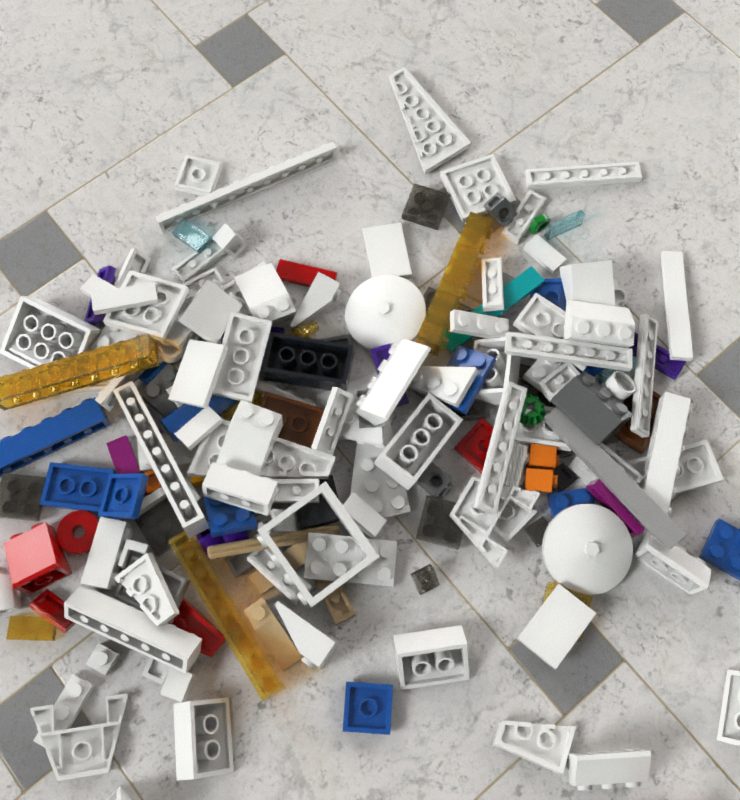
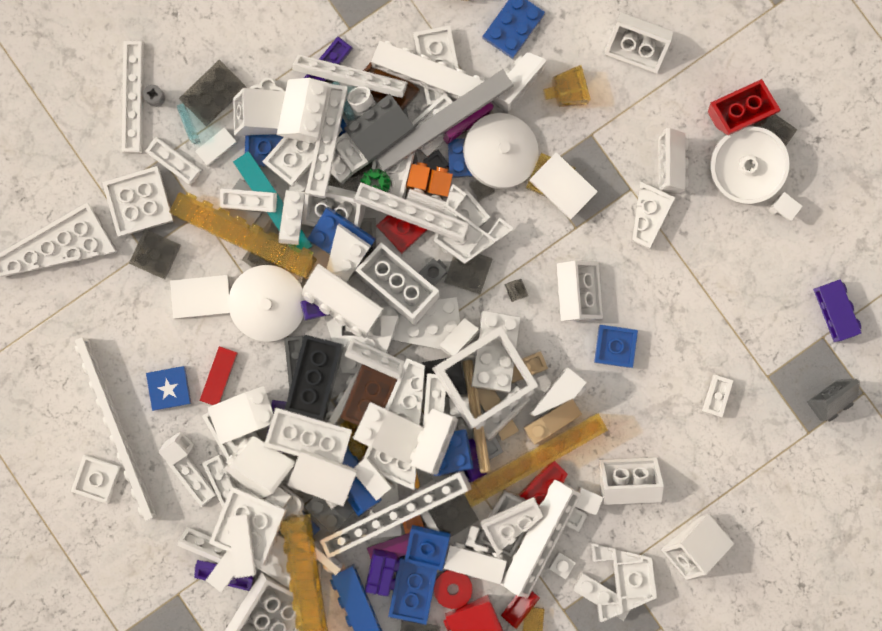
camera: 85 degrees left, 15 degrees up
(98, 450) = (381, 572): none -> dark purple brick
(192, 236) = (166, 485): clear light blue tile -> none
(291, 231) = (168, 388): none -> blue tile
(305, 330) = (280, 380): clear yellow cone -> none
(318, 298) = (247, 365): white slope -> none
(494, 206) = (168, 183): dark grey brick -> none
(539, 223) = (184, 147): green tile -> none
(584, 196) = (156, 99): none -> flat silver wheel
(600, 243) = (212, 93): none -> clear smoke plate
(676, 306) = (281, 34): white tile -> none
(676, 626) = (569, 88): none -> clear yellow torso

